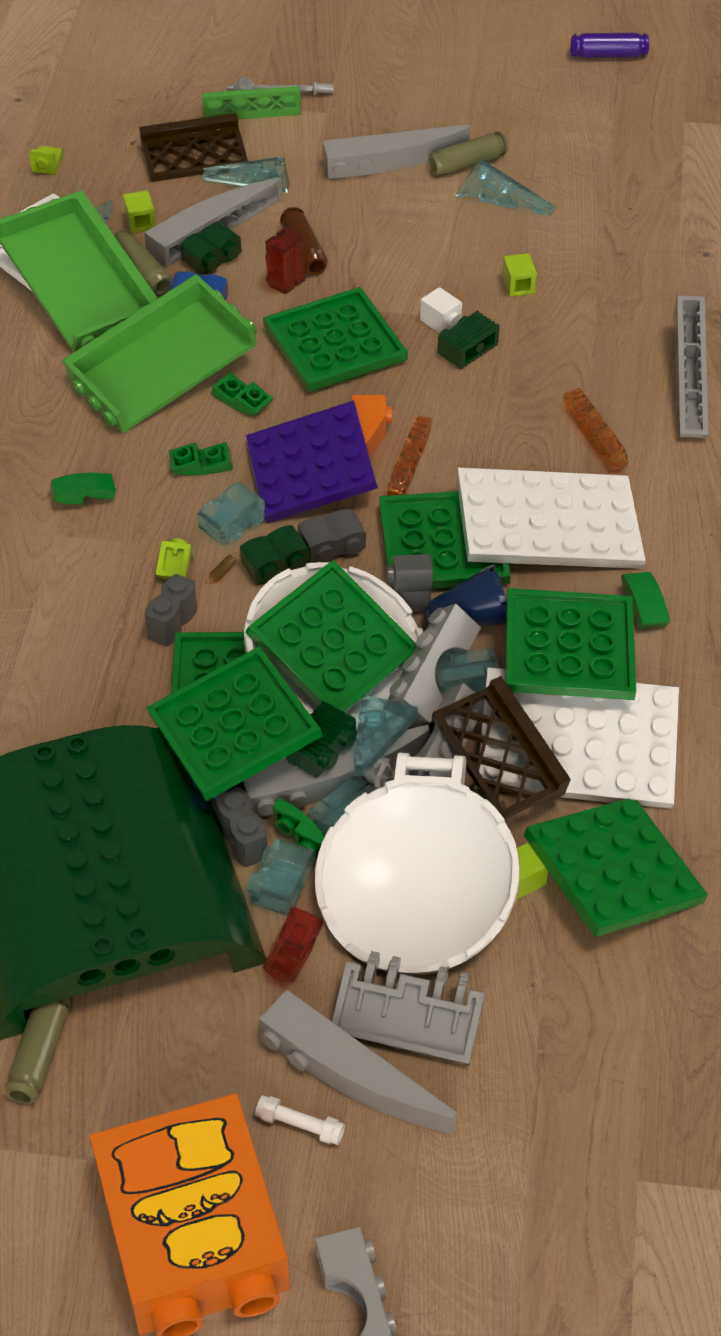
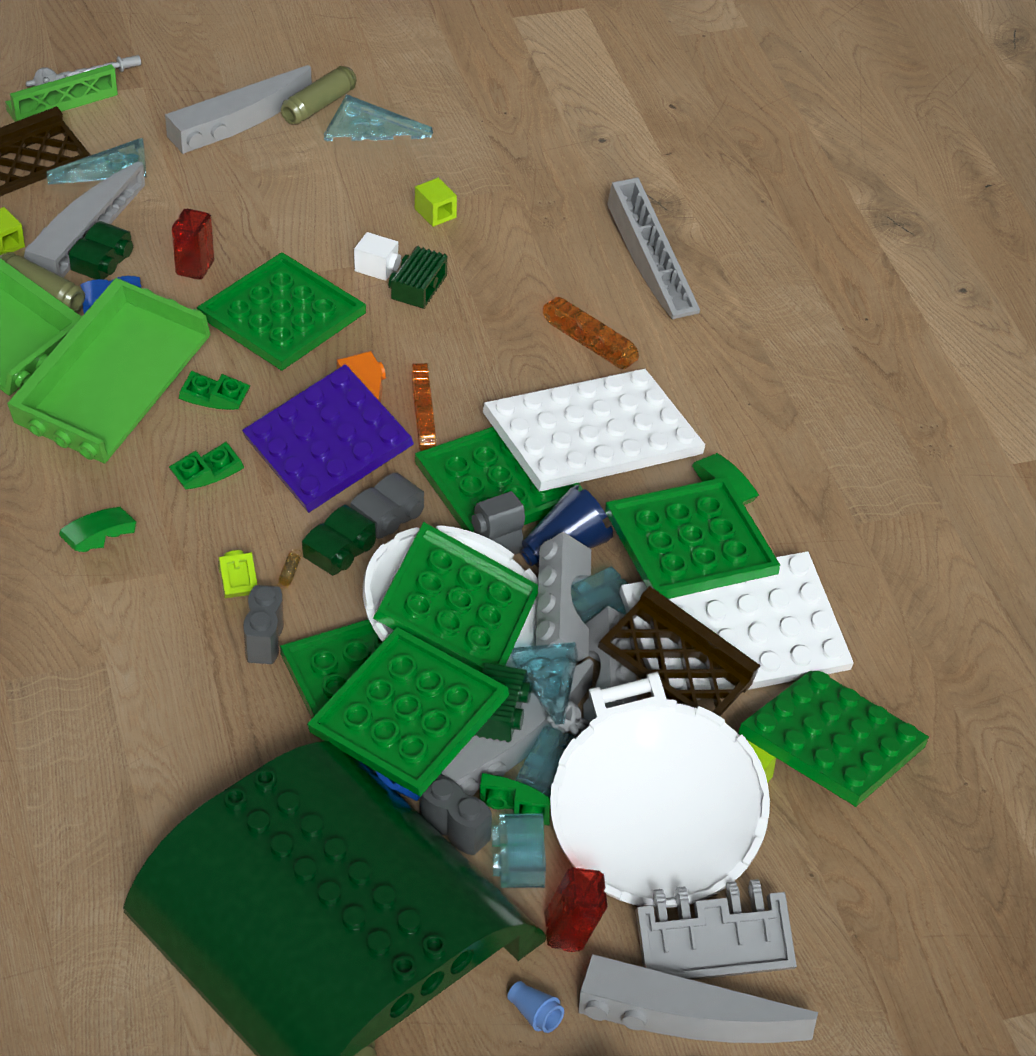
camera: 25 degrees left, 5 degrees down
(223, 1020) = (537, 1007): none -> medium blue cone
(231, 514) = (272, 512): clear light blue brick -> none
(314, 255) = (173, 202): reddish brown axle -> none

